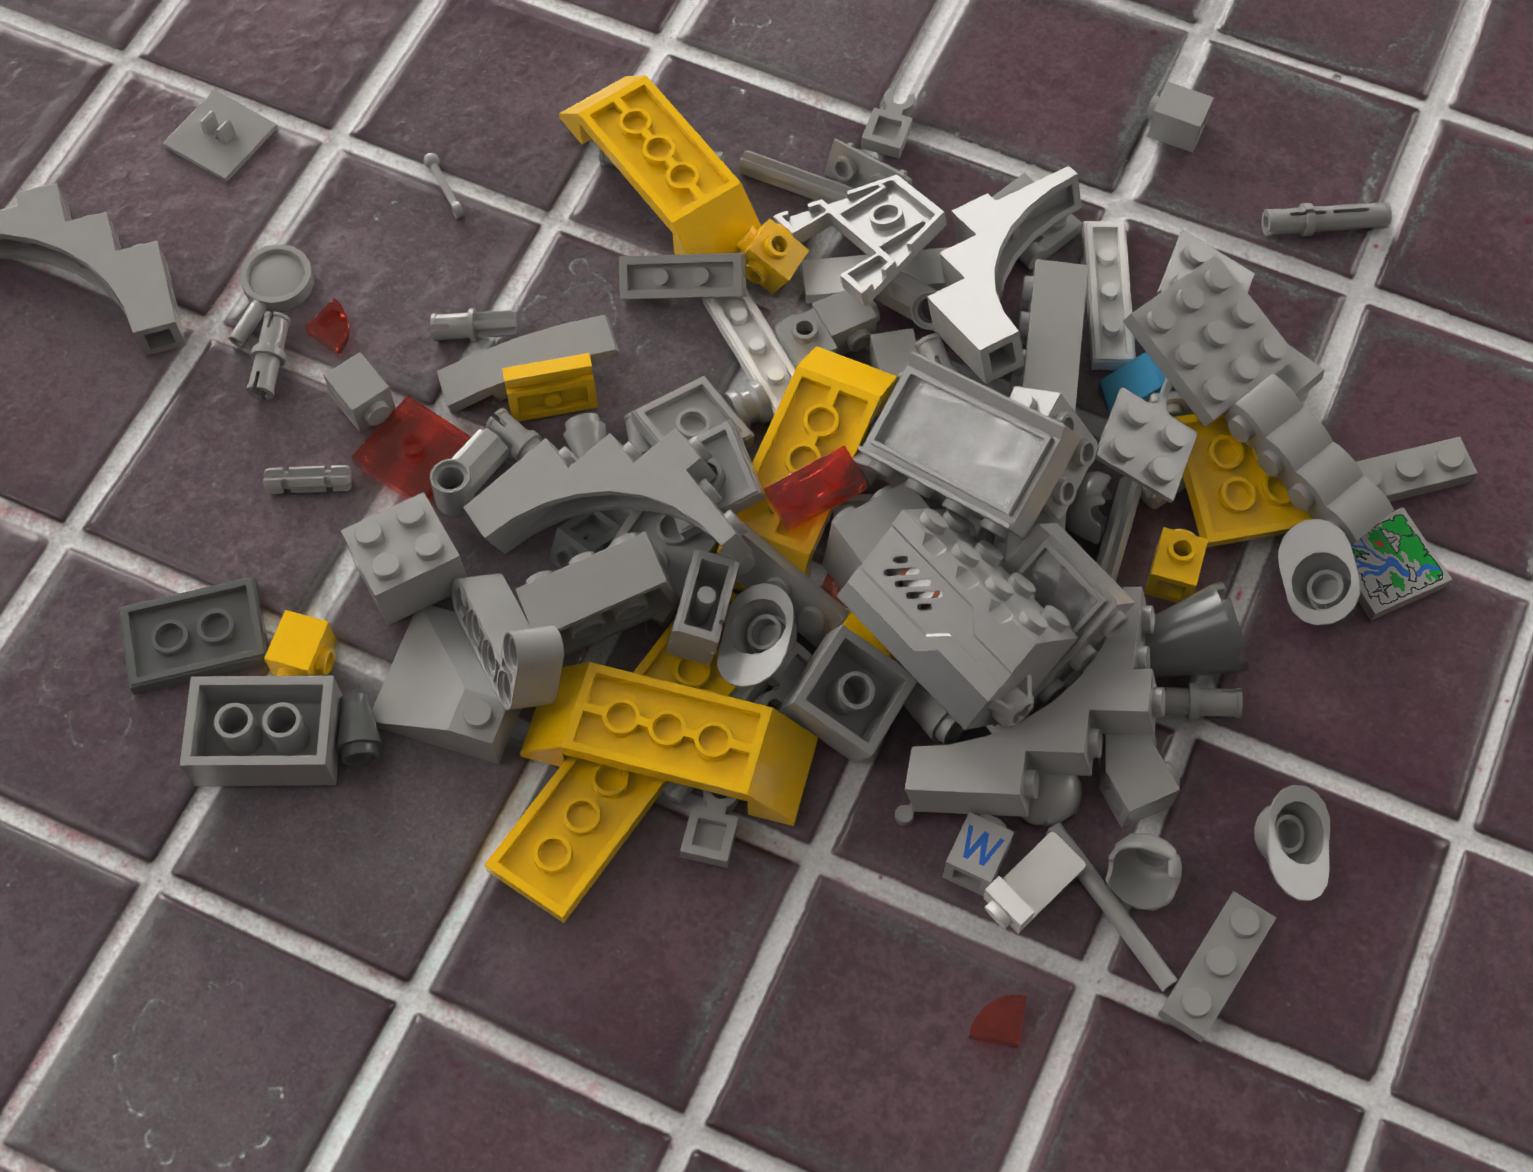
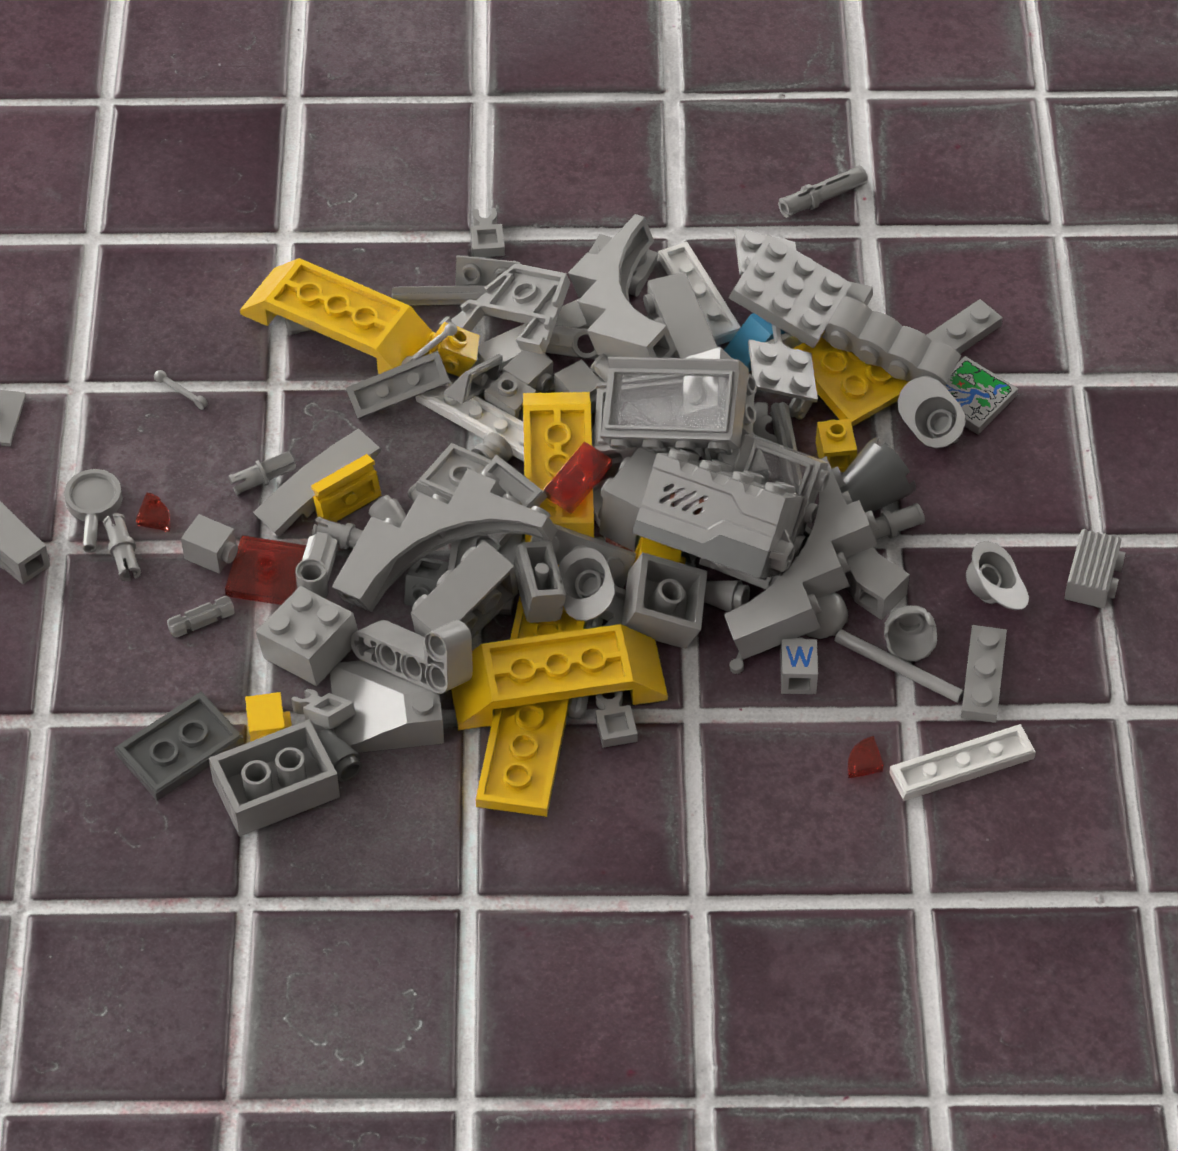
camera: 25 degrees left, 10 degrees down
(372, 664) = (324, 711): none -> light grey plate
(766, 232) = (450, 330): none -> light grey hinge
(773, 306) = (475, 380): none -> light grey slope
(1032, 883) = (841, 673): white bracket -> none
(1128, 1084) = (962, 762): none -> white tile
(1178, 116) = (688, 158): light grey brick -> none
(1435, 880) = (1093, 569): none -> light grey brick

